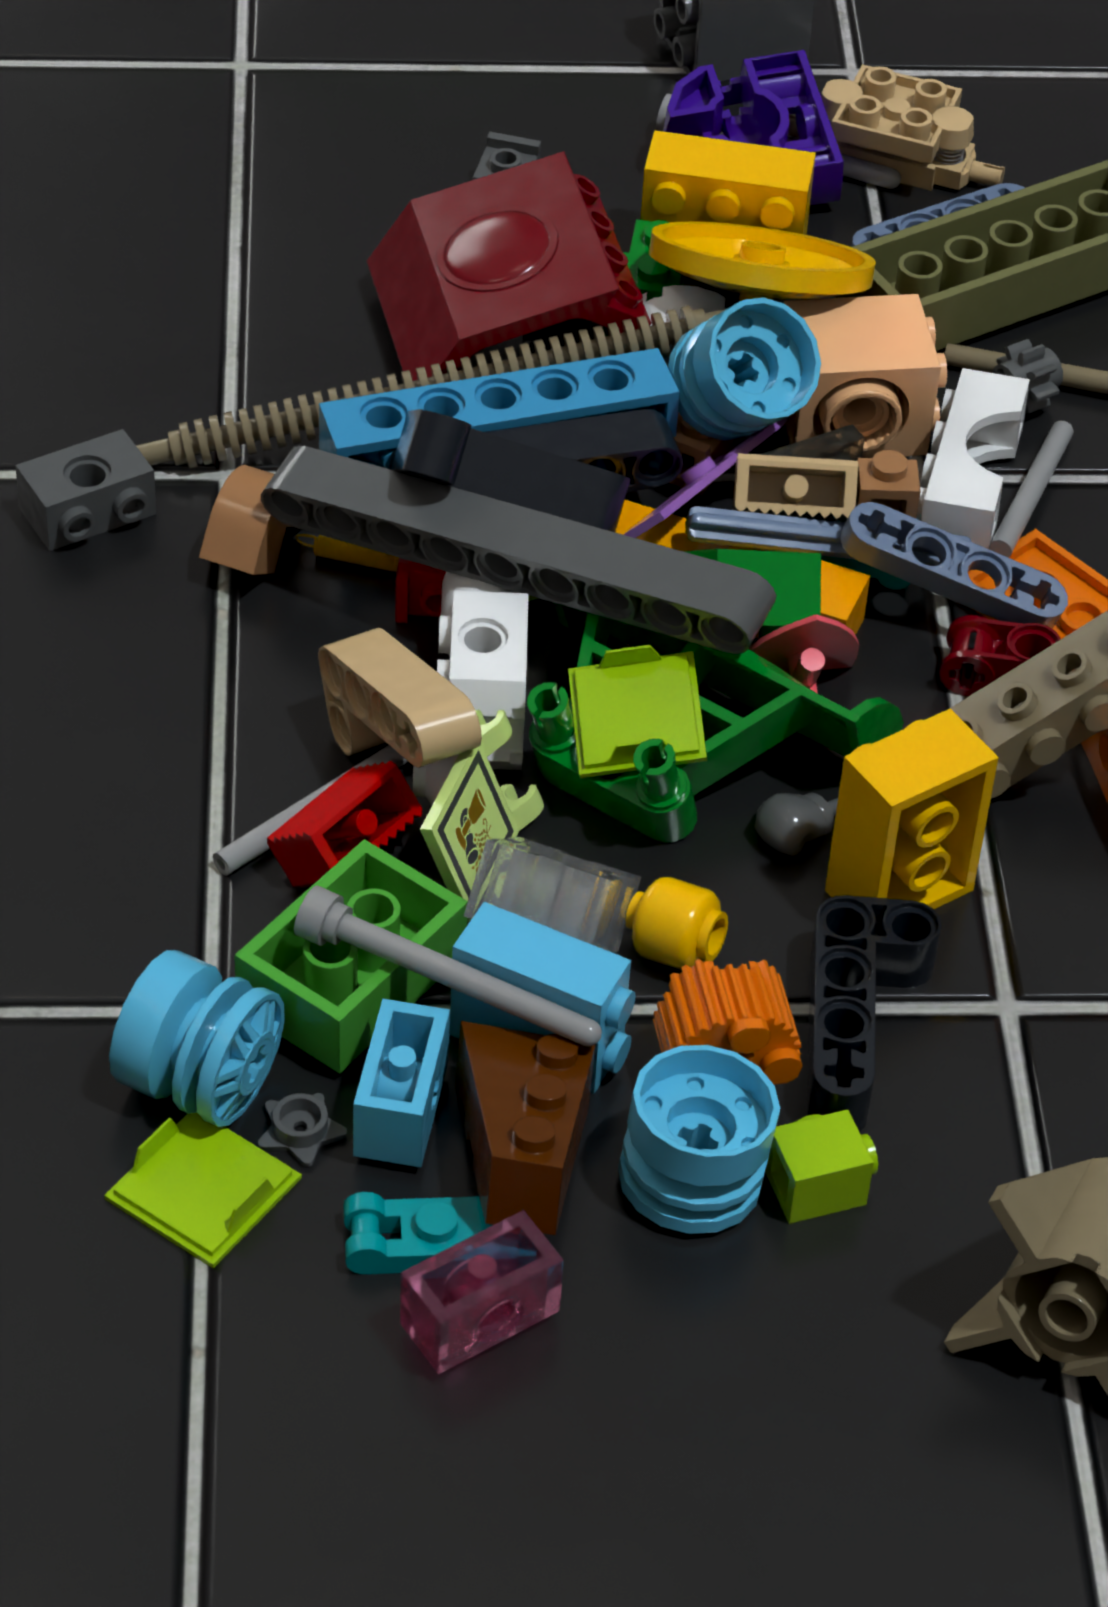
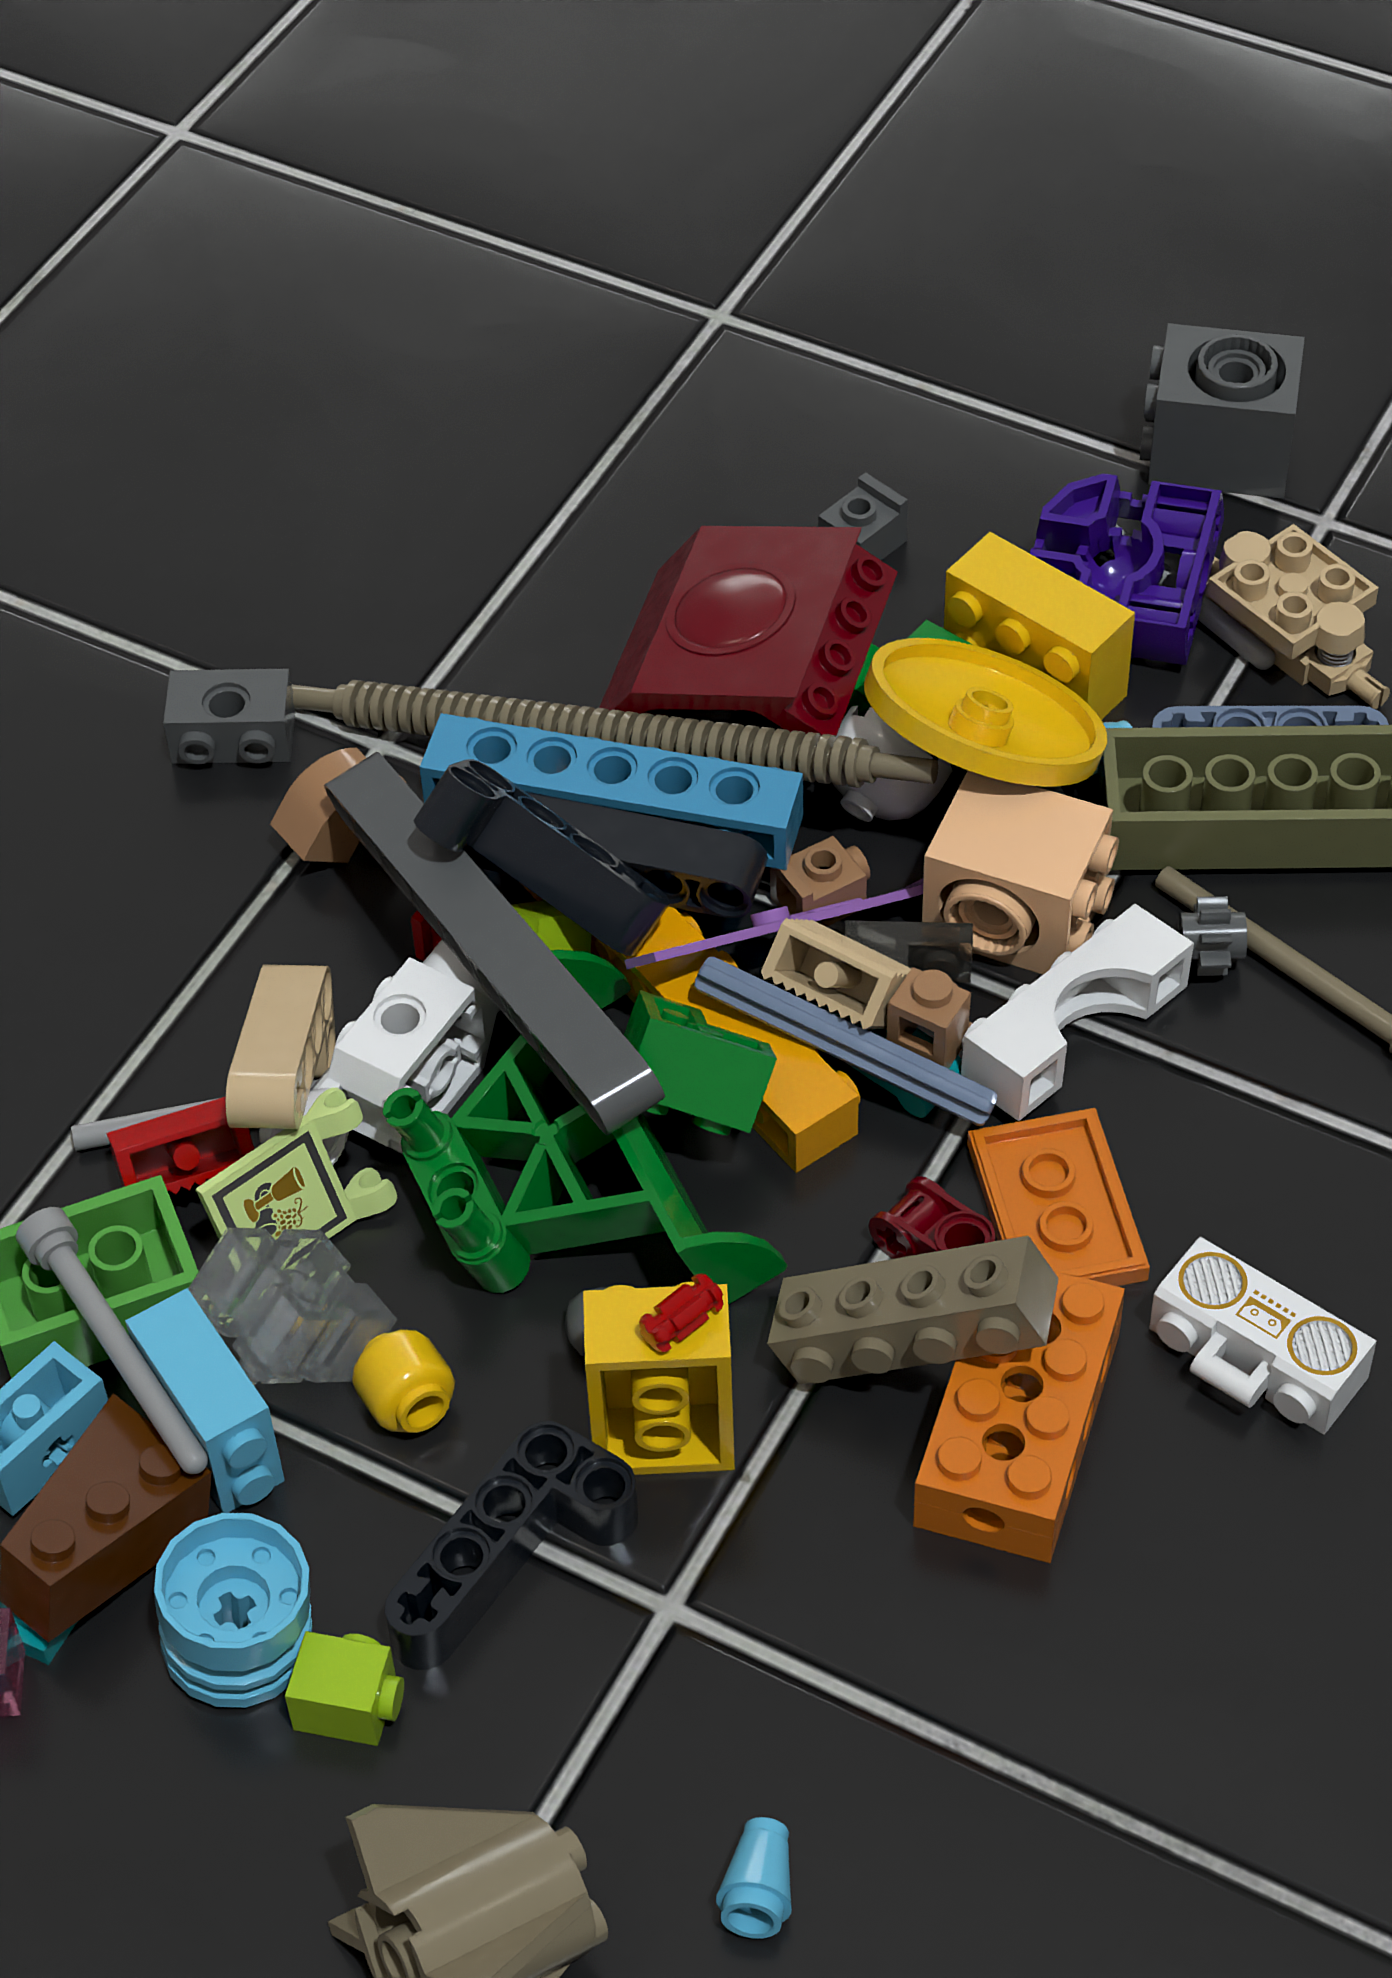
camera: 35 degrees right, 5 degrees up
(632, 700) = (501, 1149): lime piece -> none
(732, 1011) = (346, 1513): orange brick -> none
(745, 369) = (900, 828): medium azure wheel -> none
(809, 647) = (727, 1160): coral shield -> none
(943, 736) = (681, 1312): none -> red piece
(956, 559) = (950, 1115): sand blue beam -> none
(1032, 489) = (1122, 1063): light grey bar -> none

